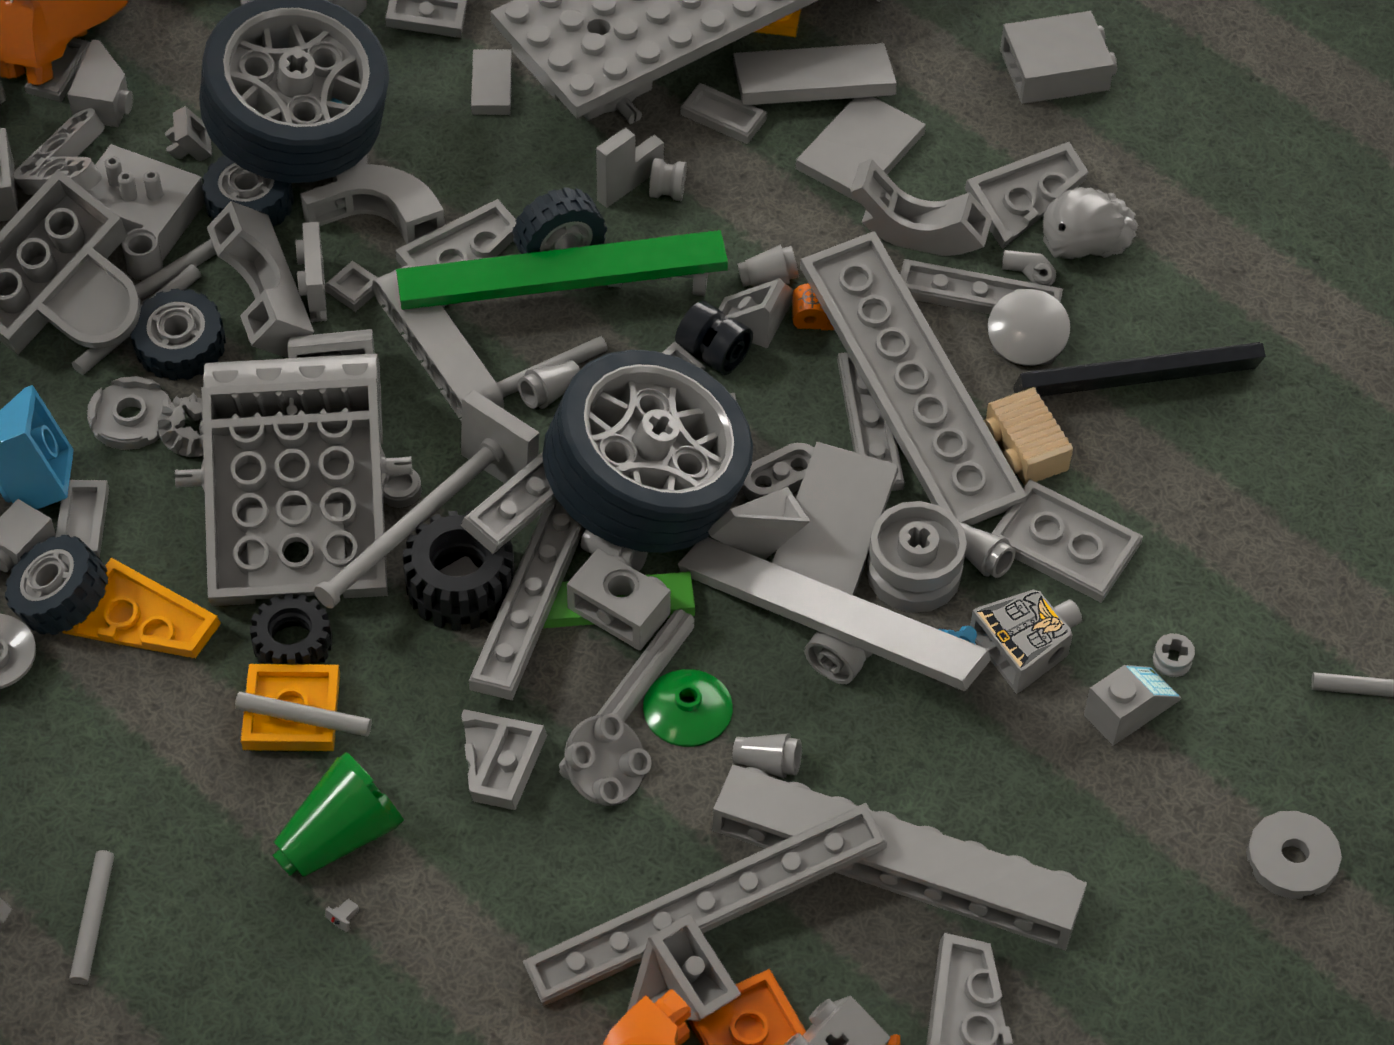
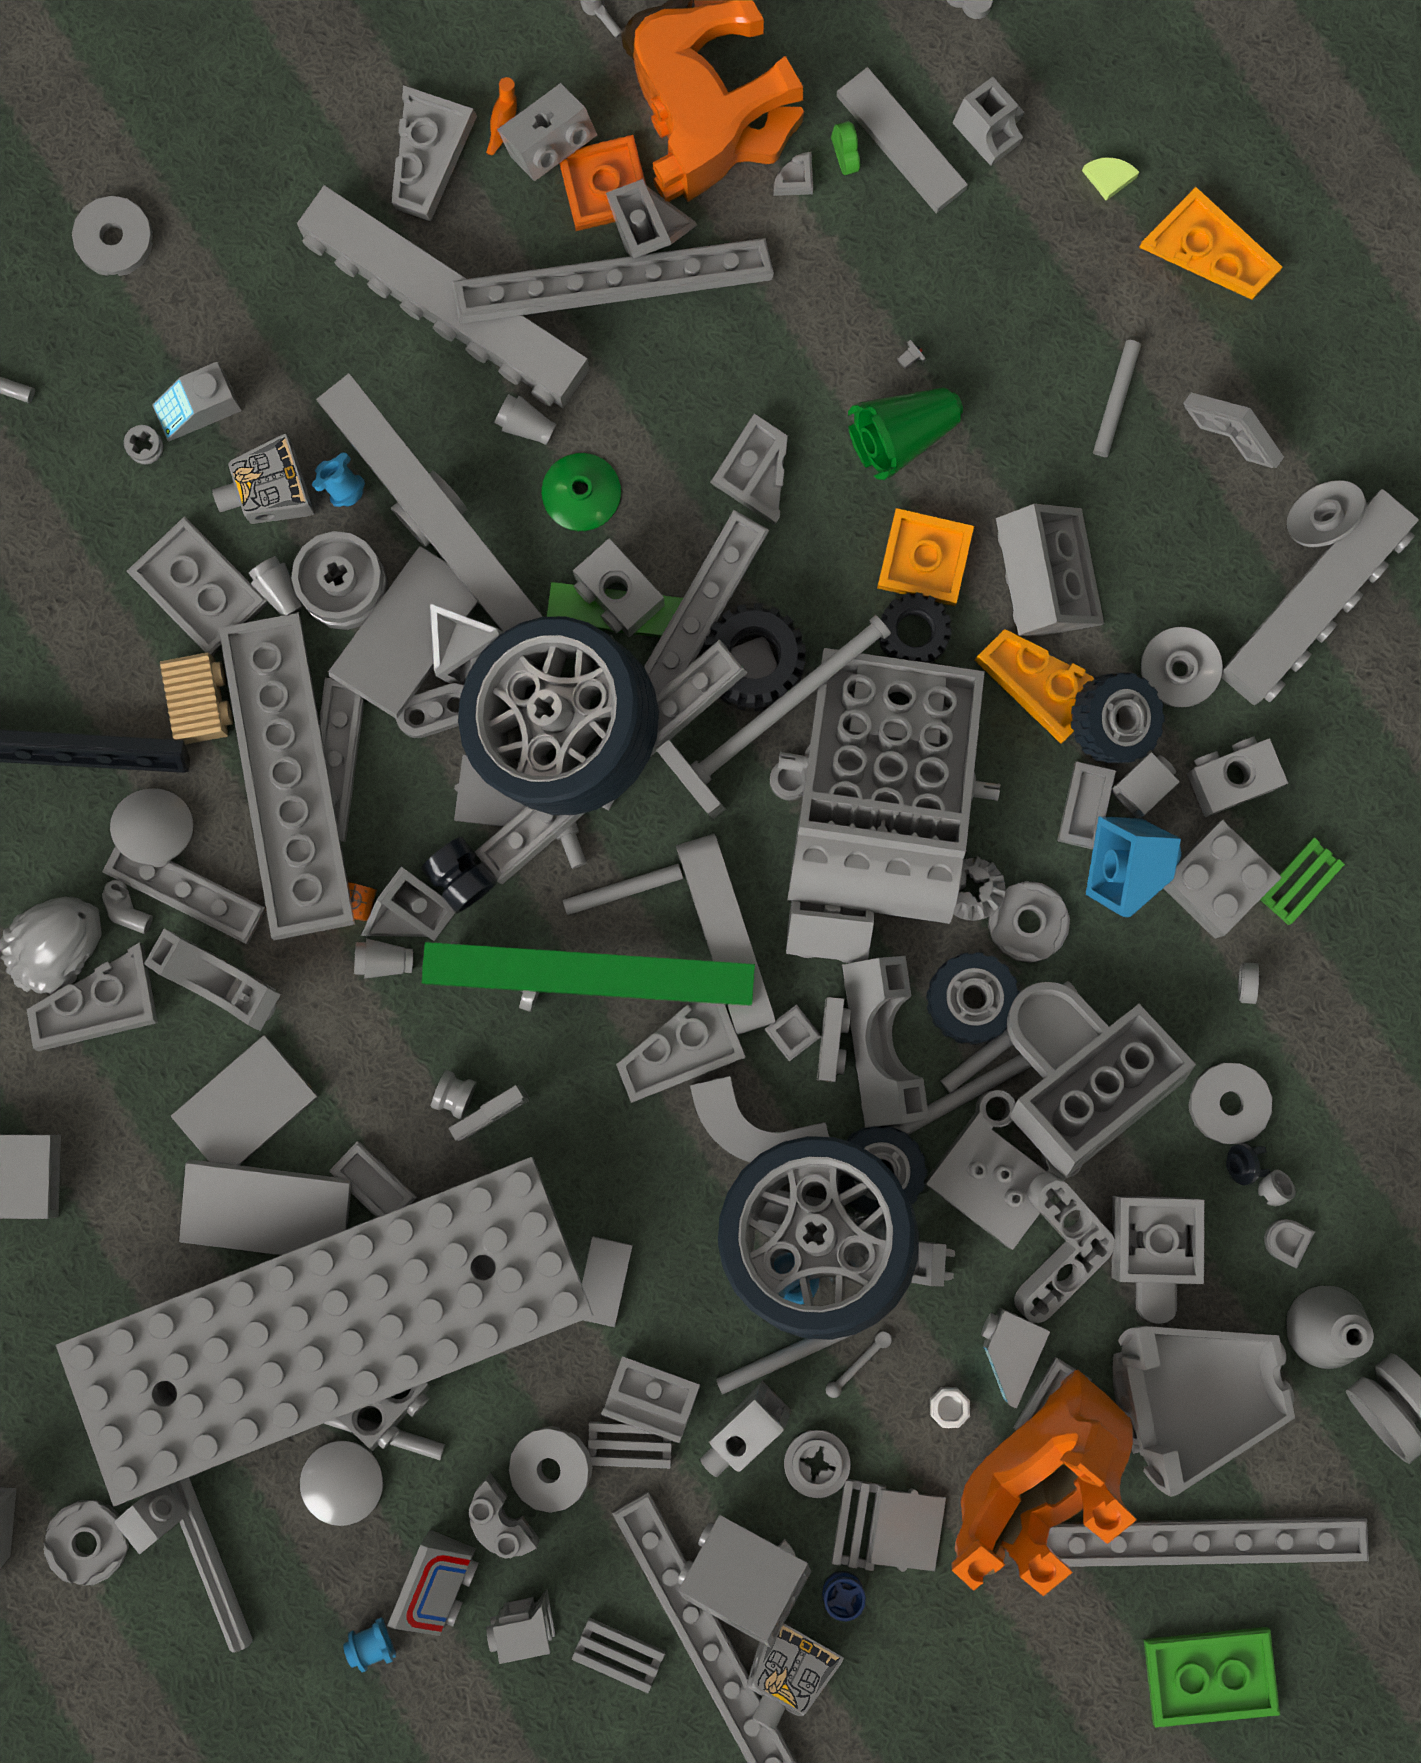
camera: 165 degrees left, 30 degrees up
(148, 716) = (1049, 570): none -> light grey slope
(154, 46) = (949, 1407): none -> white tile
(303, 714) = (917, 534): light grey bar -> none
(546, 384) = (628, 862): light grey cone -> none
(559, 222) = (580, 1026): black wheel -> none
(605, 759) = (665, 438): light grey dish -> none
(646, 669) = (634, 505): light grey axle -> none

